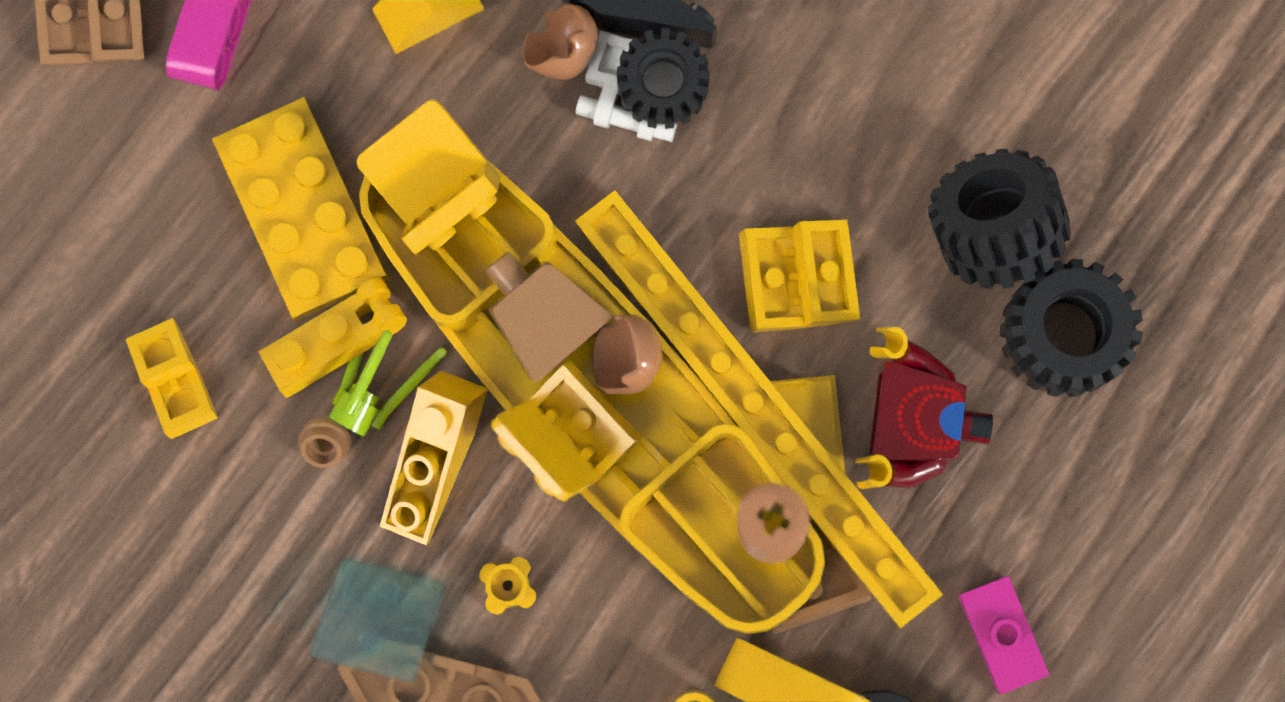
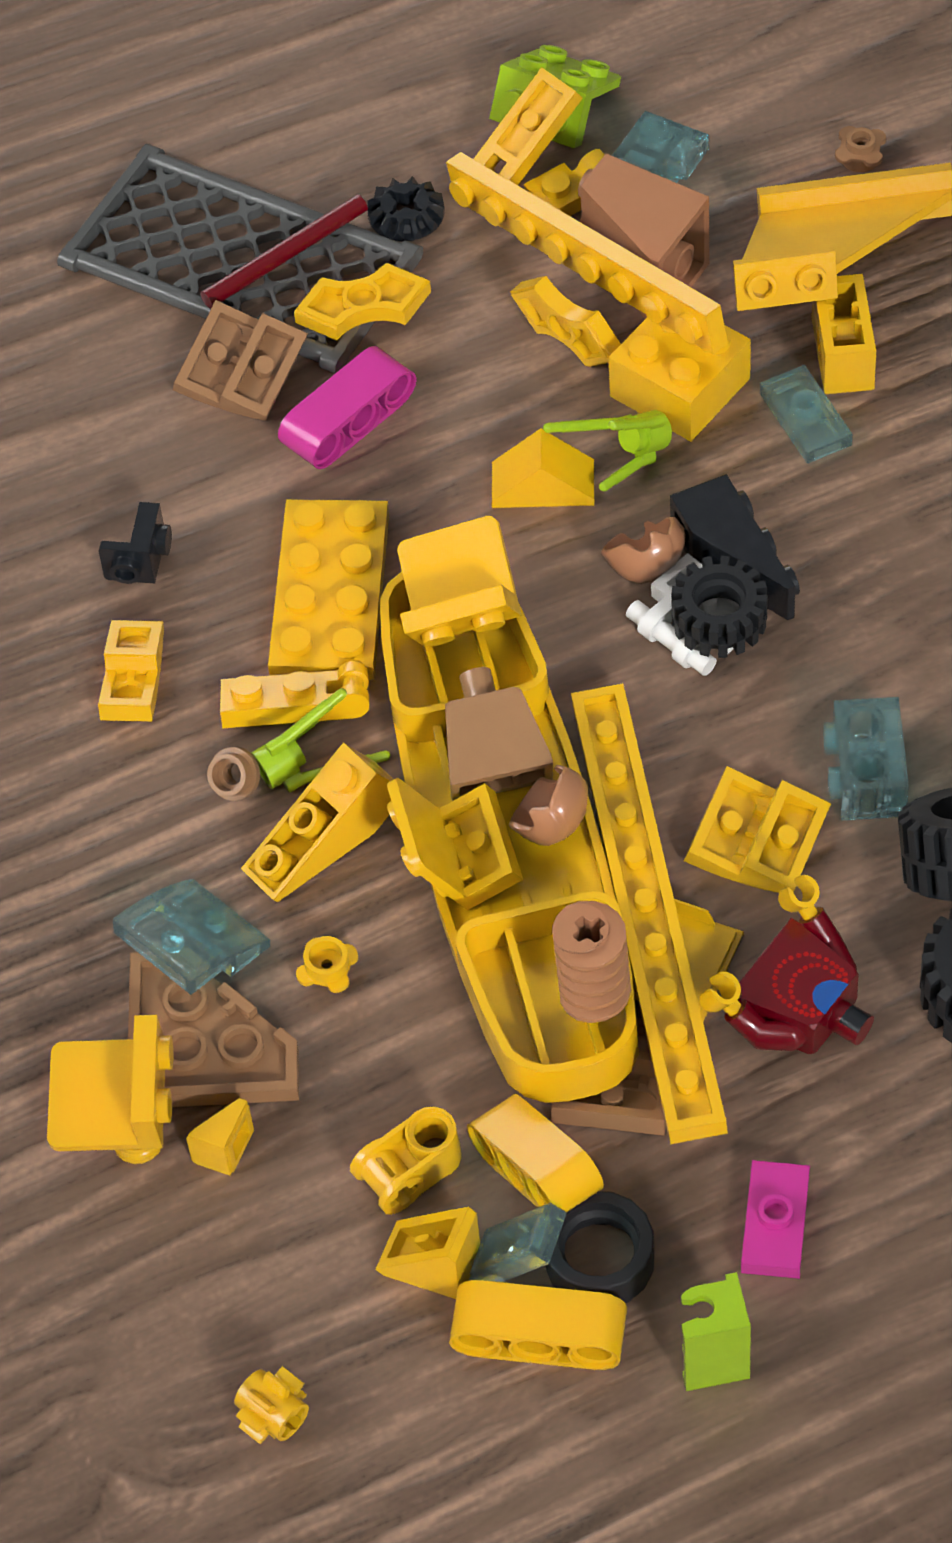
camera: 30 degrees right, 25 degrees down
(114, 243) = (141, 556): none -> black bracket
(871, 158) = (873, 758): none -> clear light blue brick

